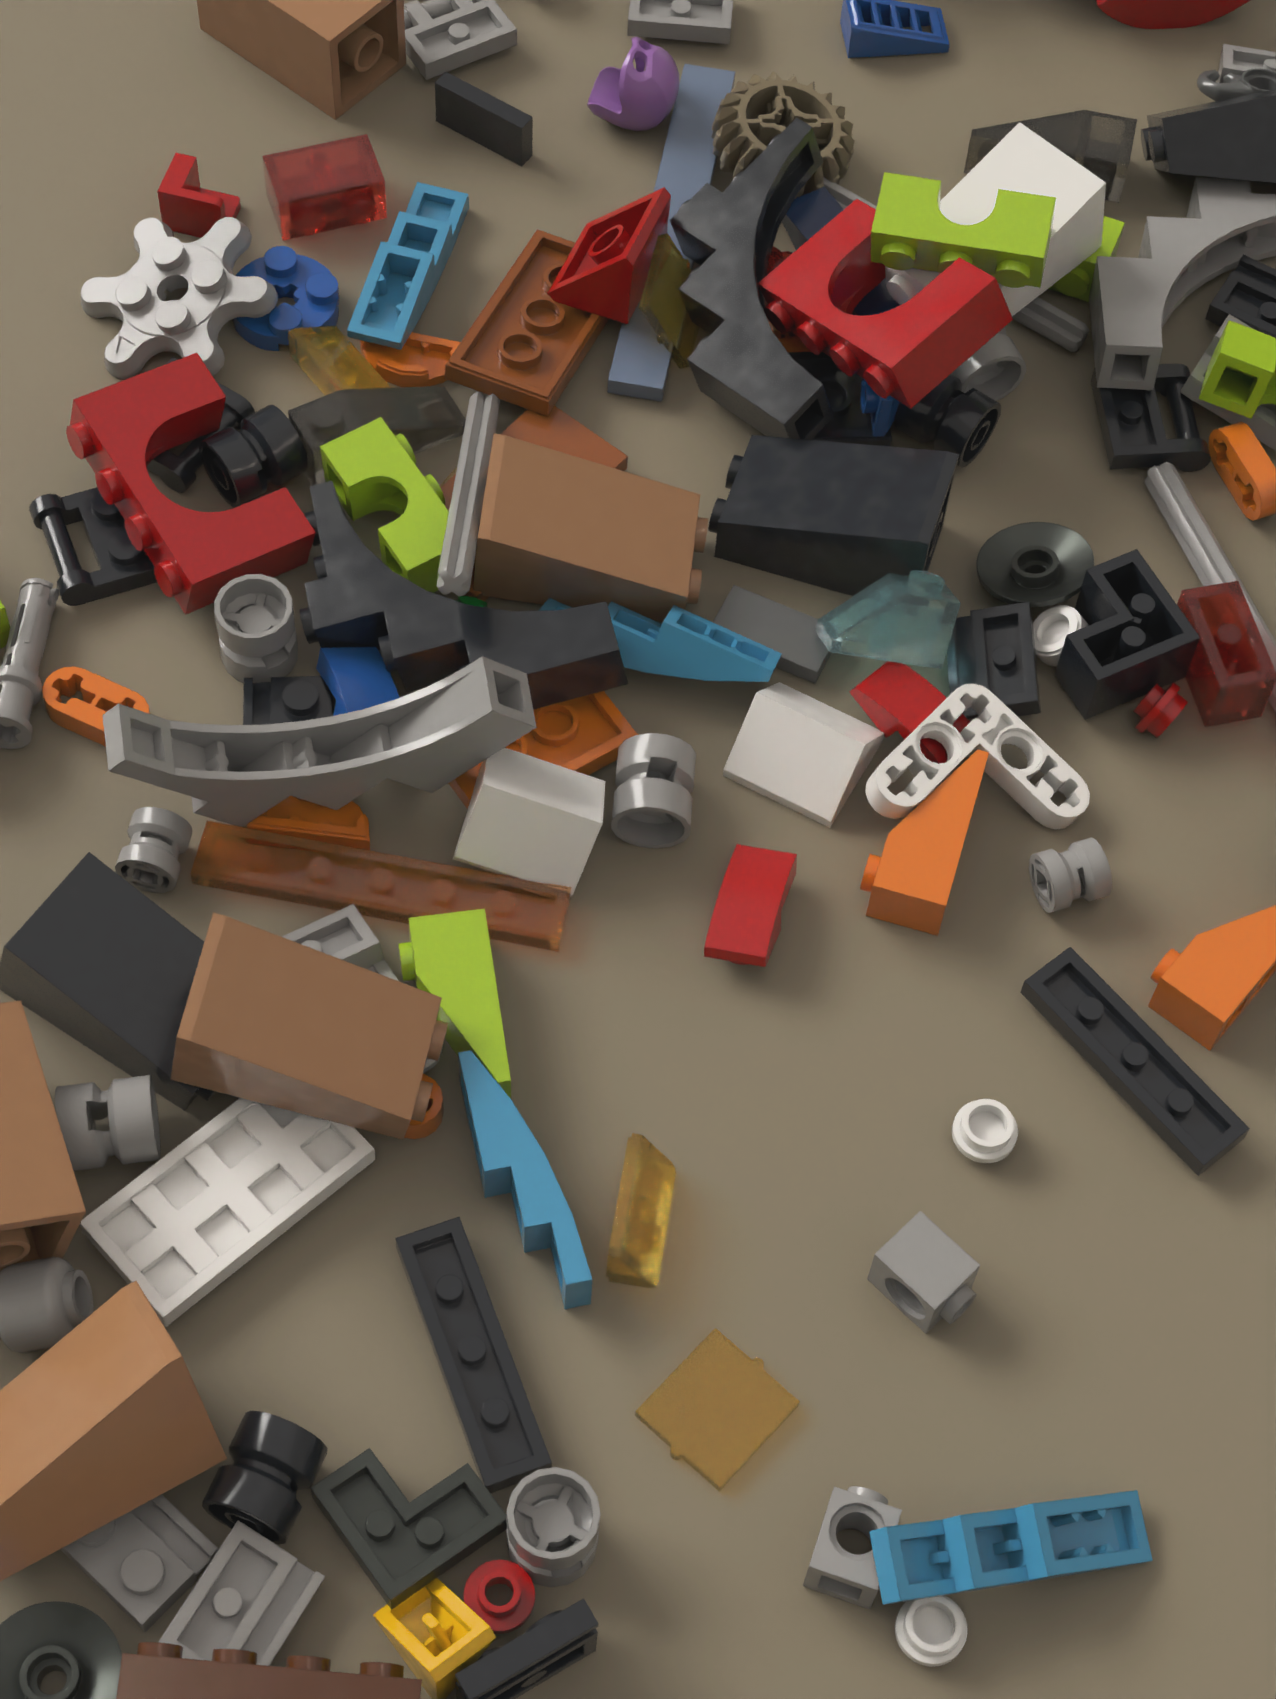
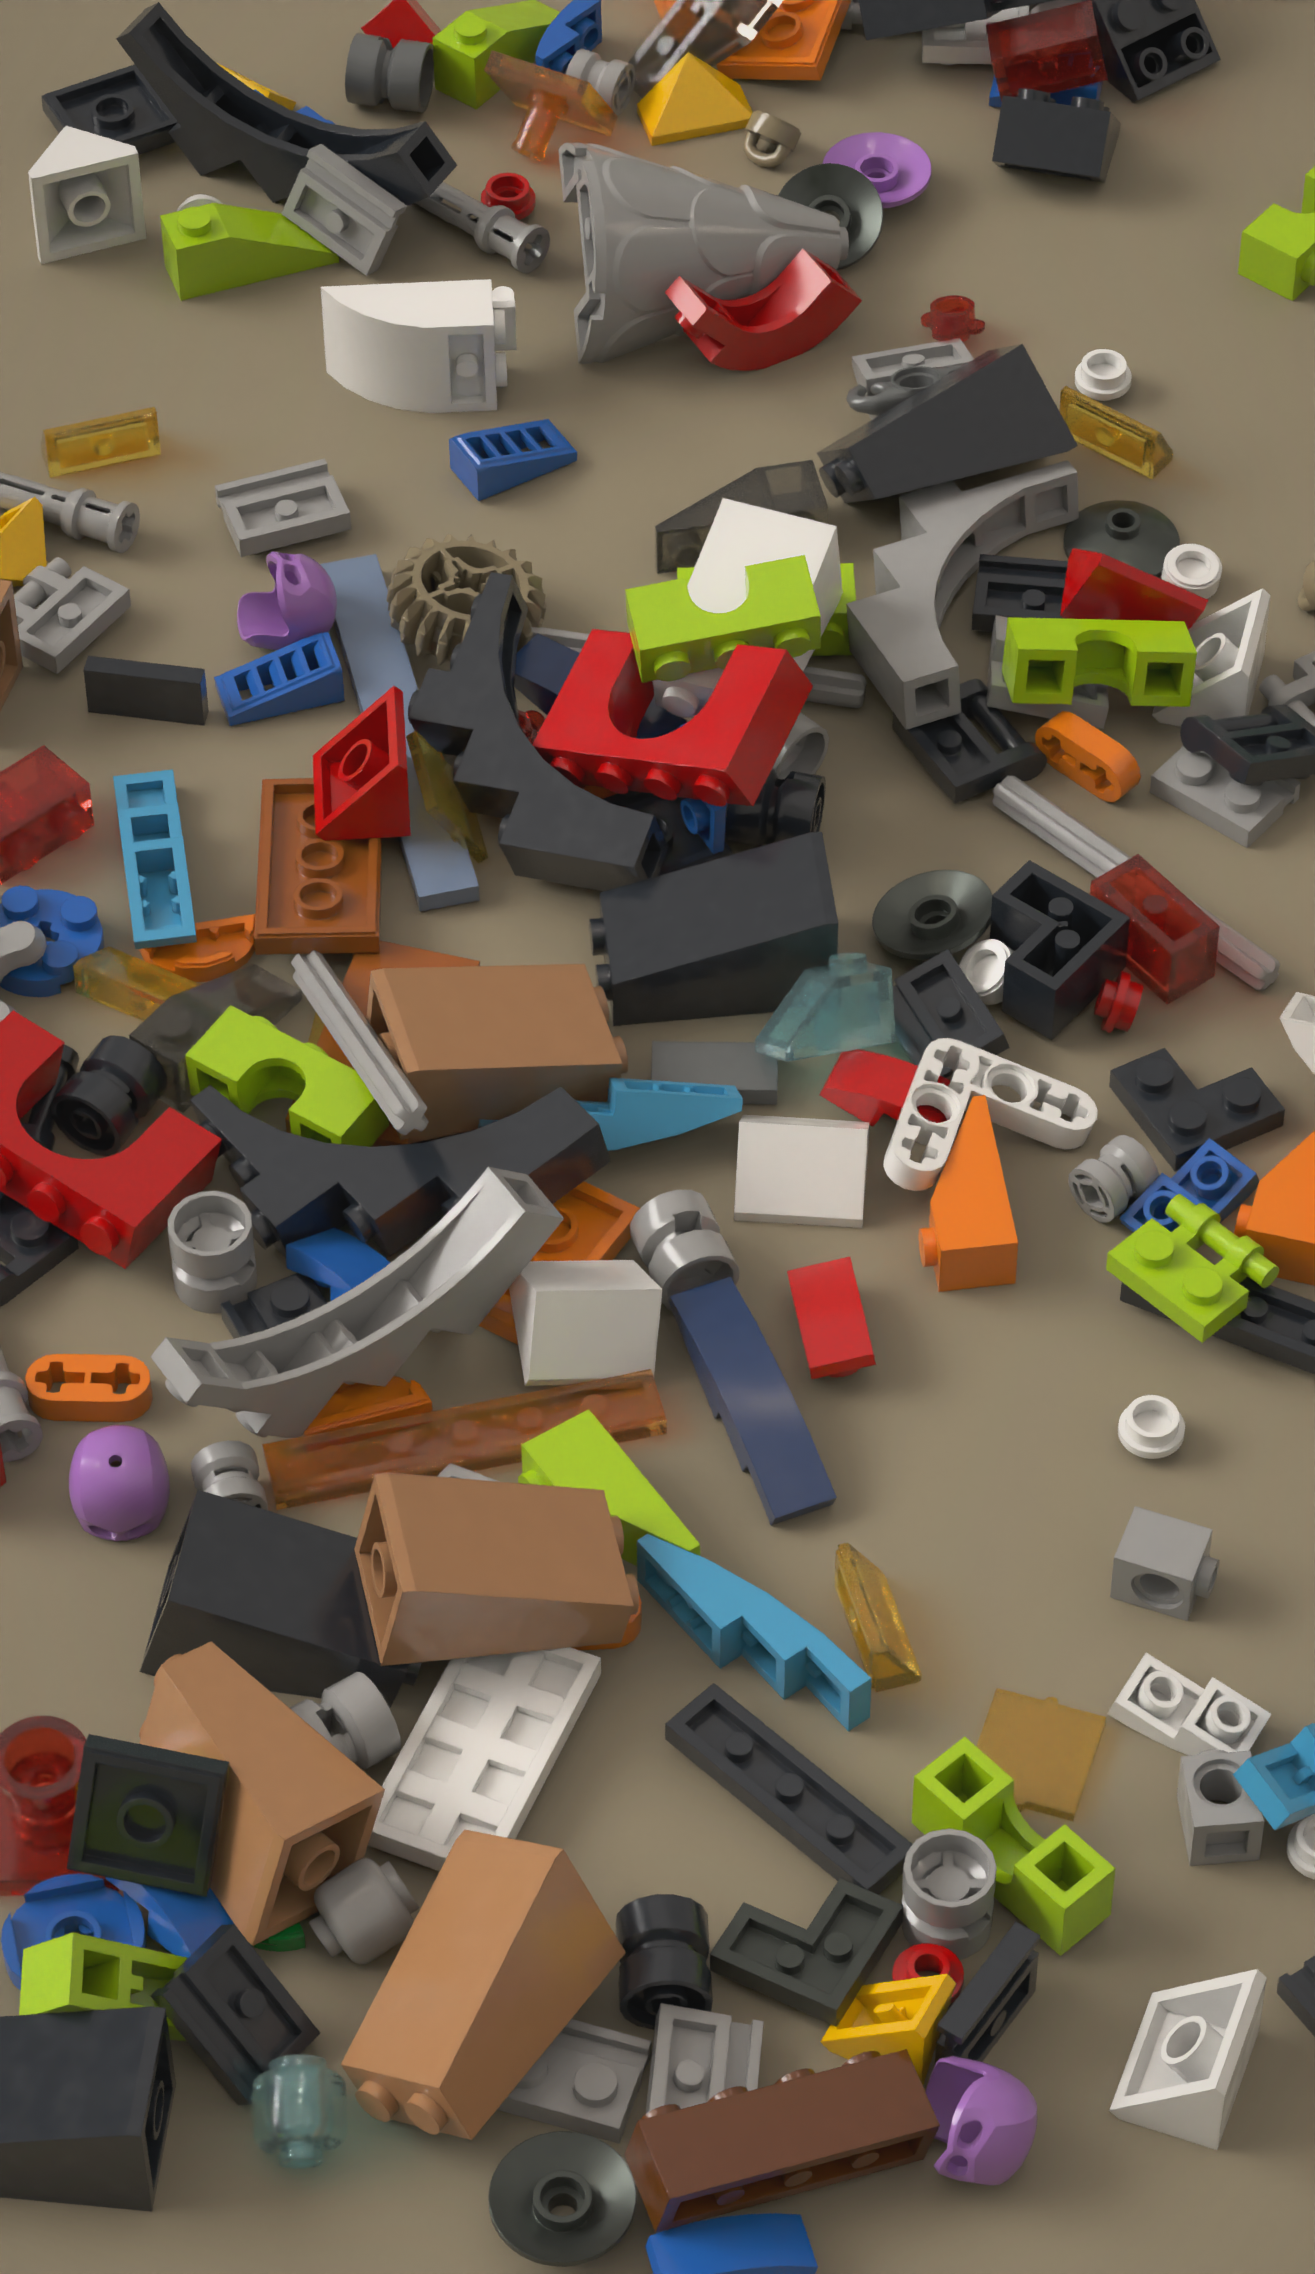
camera: 20 degrees left, 10 degrees down
(75, 819) = (123, 1499): none -> medium lavender helmet
(625, 157) = (313, 677): none -> blue slope
(639, 956) = (752, 1400): none -> dark blue slope
(640, 1530) = (1048, 1883): none -> lime arch
(875, 1435) = (1184, 1714): none -> white slope
(1077, 1001) = (1180, 1280): none -> lime plate
(1132, 925) = (1207, 1177): none -> blue slope
(1169, 846) = (1184, 1118): none -> black plate

